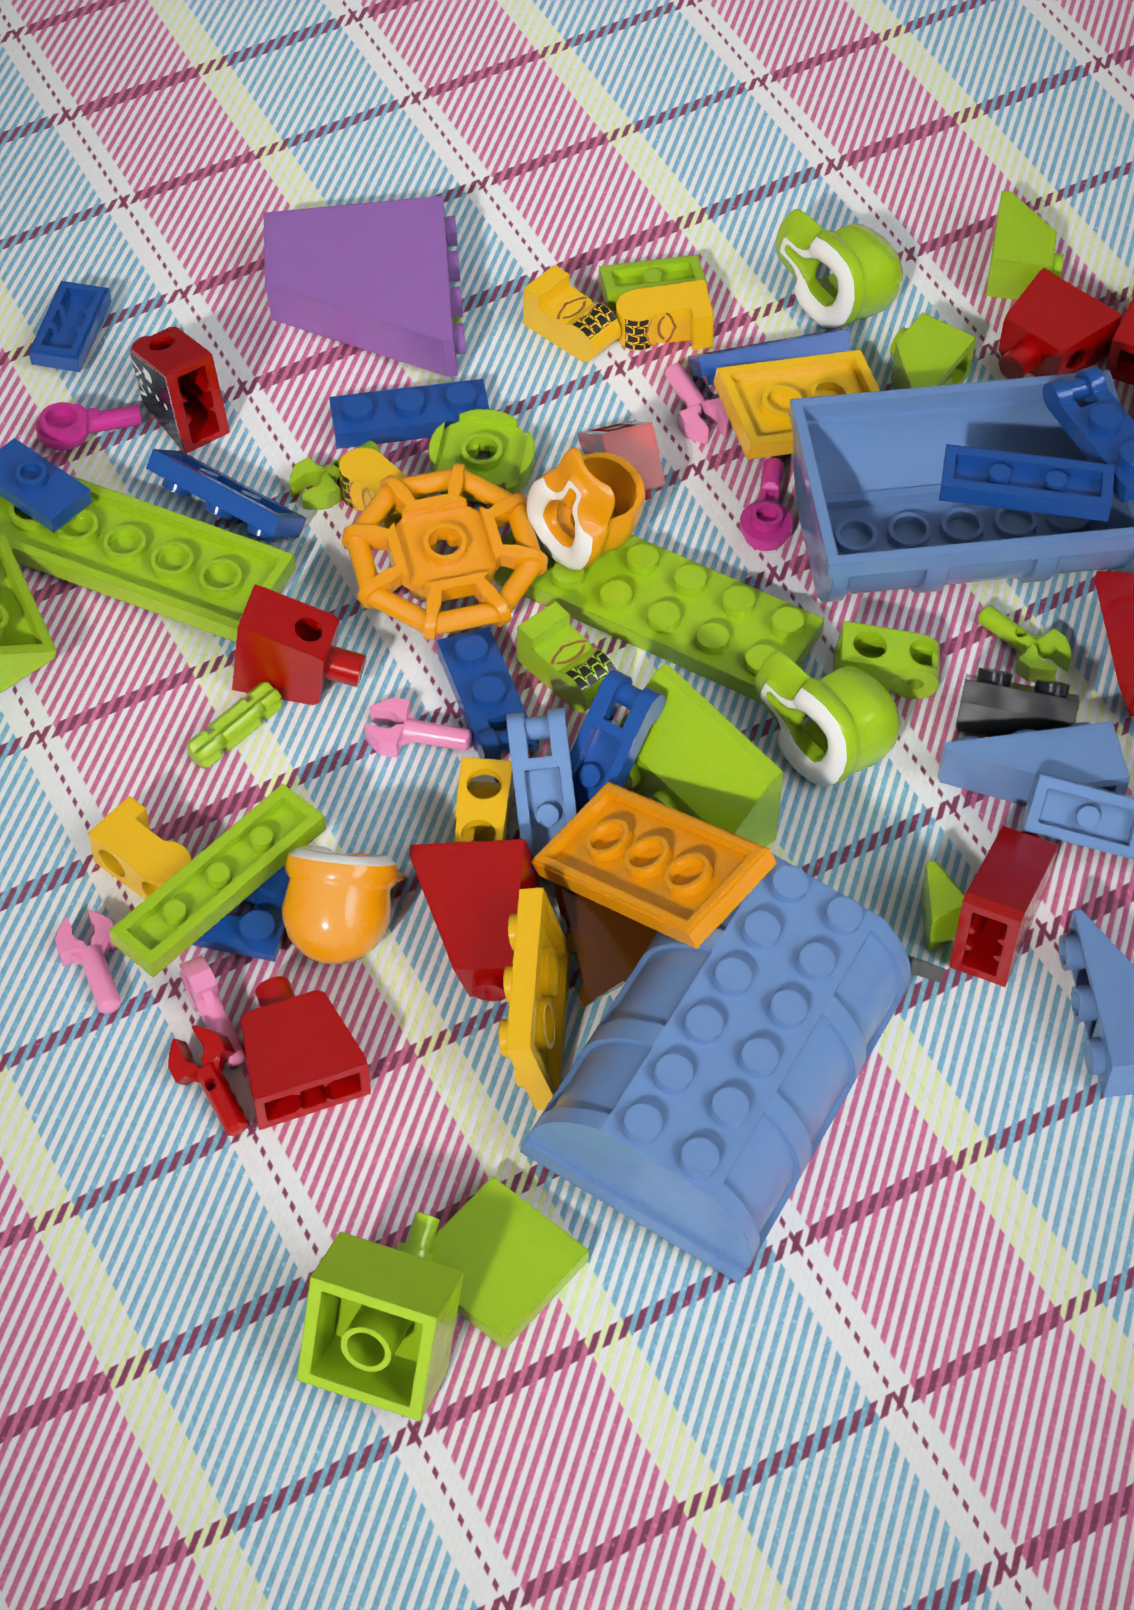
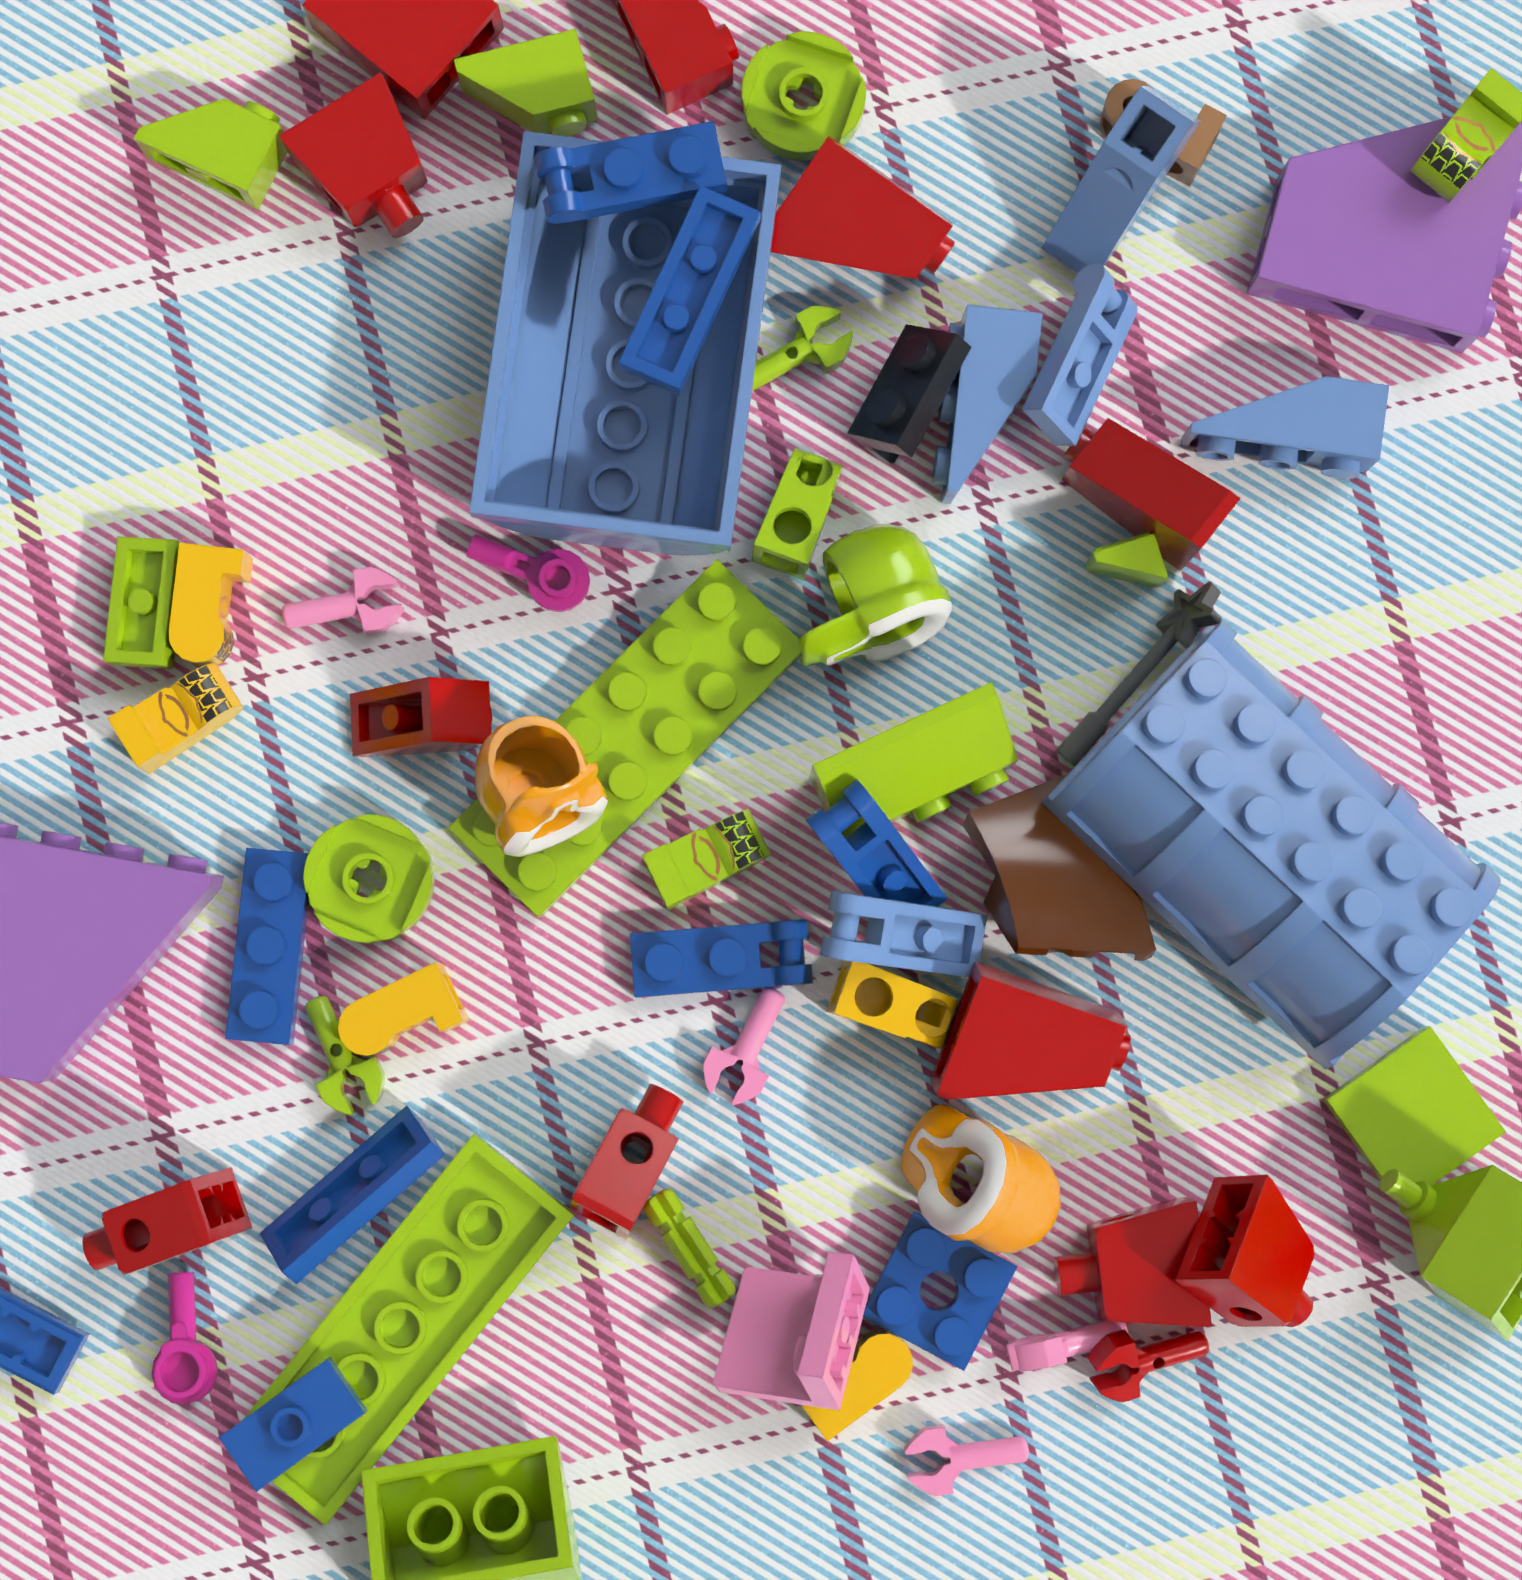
camera: 80 degrees left, 30 degrees up
(179, 791) = (794, 1334): none -> bright pink bracket
(216, 880) = (935, 1312): lime plate -> none
(323, 1119) = (1249, 1255): none -> red torso
(438, 576) = (506, 989): light orange plate -> none
(536, 997) = (1164, 1011): yellow plate -> none
(654, 864) = (1068, 852): light orange tile -> none
(760, 395) = (400, 483): yellow plate -> none
(787, 348) = (303, 498): plate -> none
(863, 265) = (220, 375): lime piece -> none
(930, 354) = (379, 323): lime slope -> none

